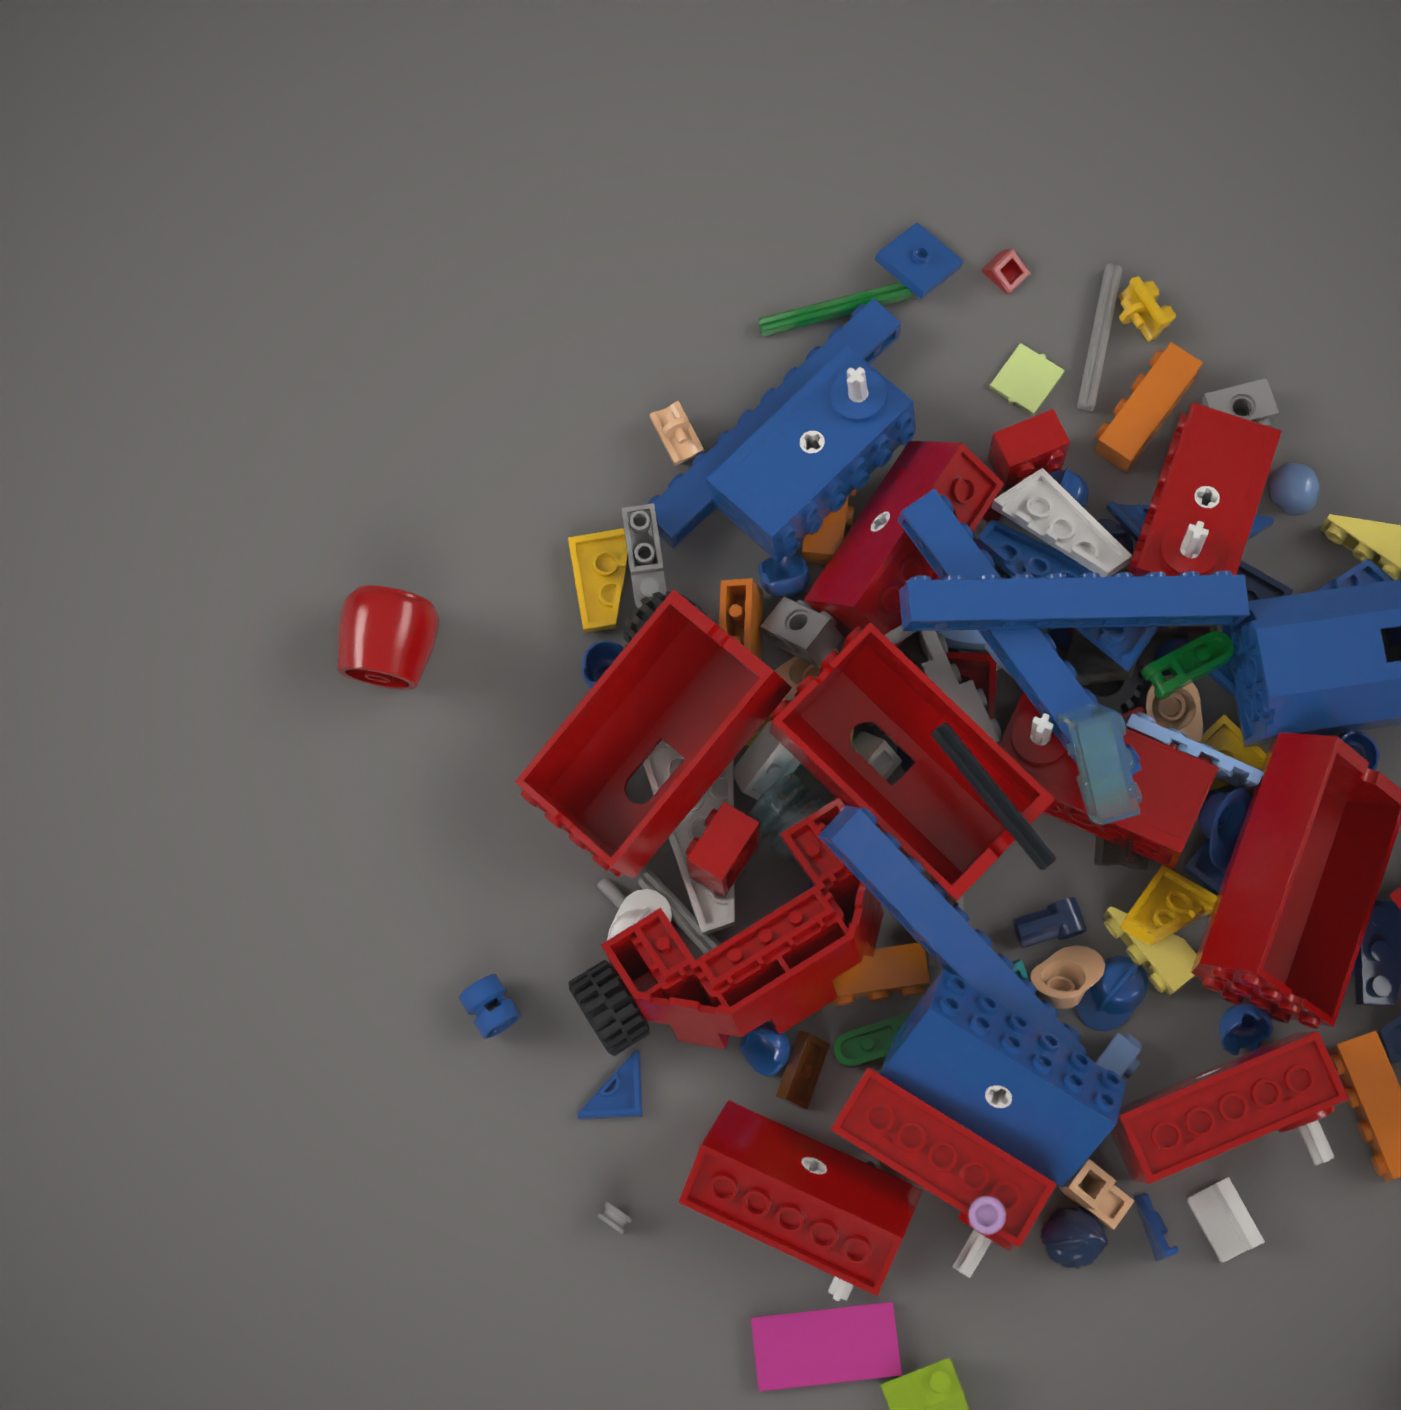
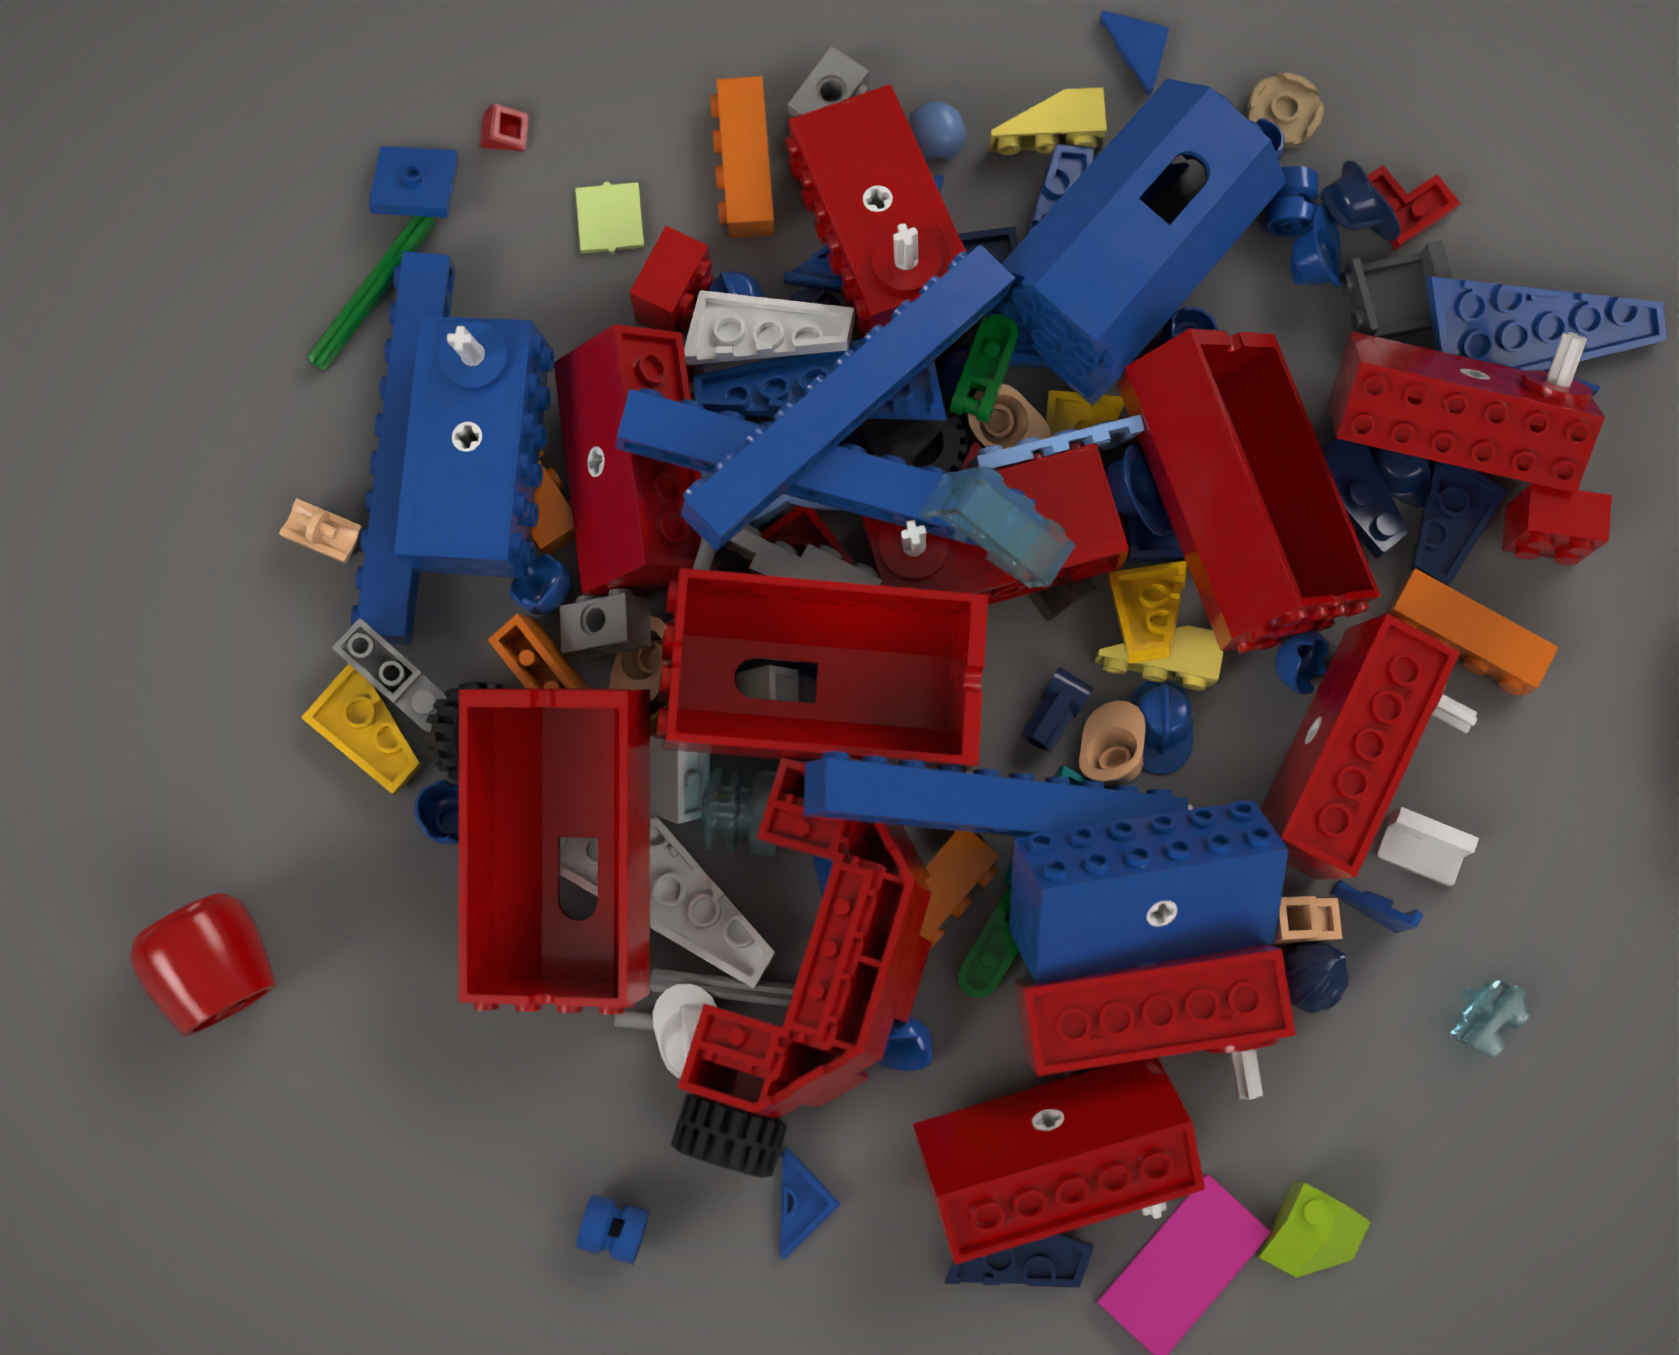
camera: 50 degrees left, 5 degrees up
(614, 1218) = (897, 1322): light grey bush -> none
(722, 849) = (710, 895): red brick -> none
(730, 1251) = (1041, 1263): none -> dark blue wing
(802, 1070) = (951, 1034): reddish brown plate -> none
(987, 1215) = (1244, 1031): lavender tile -> none
(993, 796) = (931, 639): black axle -> none
(1099, 337) = (645, 126): light grey axle -> none
(1121, 1055) = (1218, 780): medium blue brick -> none
(1143, 310) = (663, 67): yellow hips -> none
(1172, 1359) = (1487, 1013): none -> clear light blue hips

